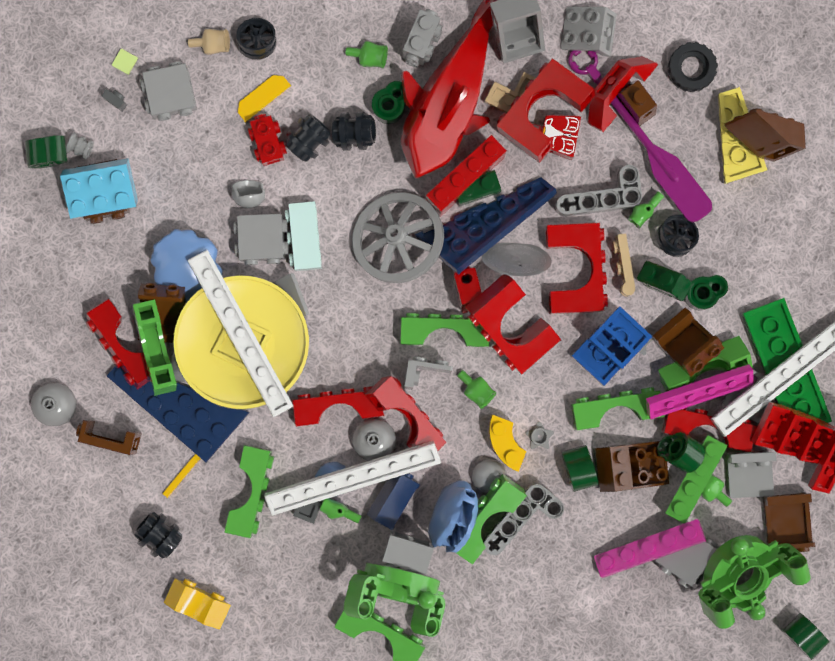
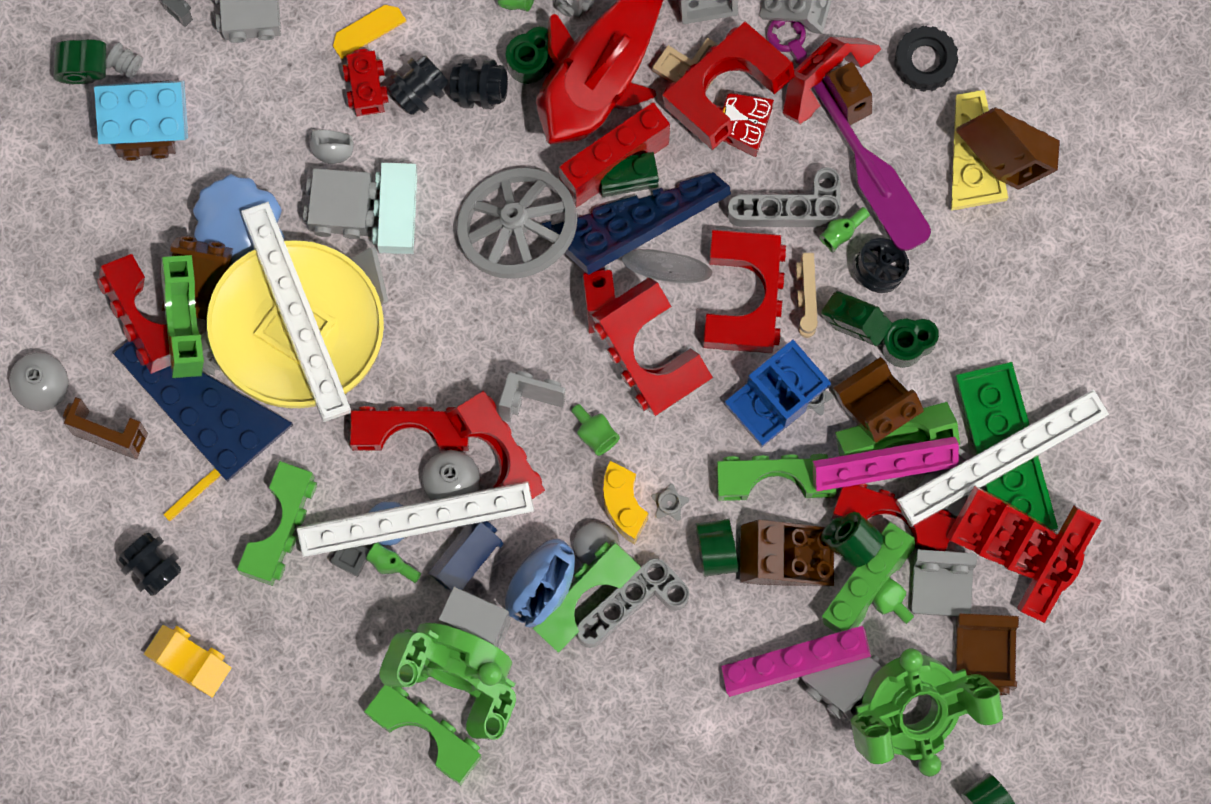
camera: 10 degrees right, 10 degrees down
(416, 329) = (527, 343): bright green arch -> none

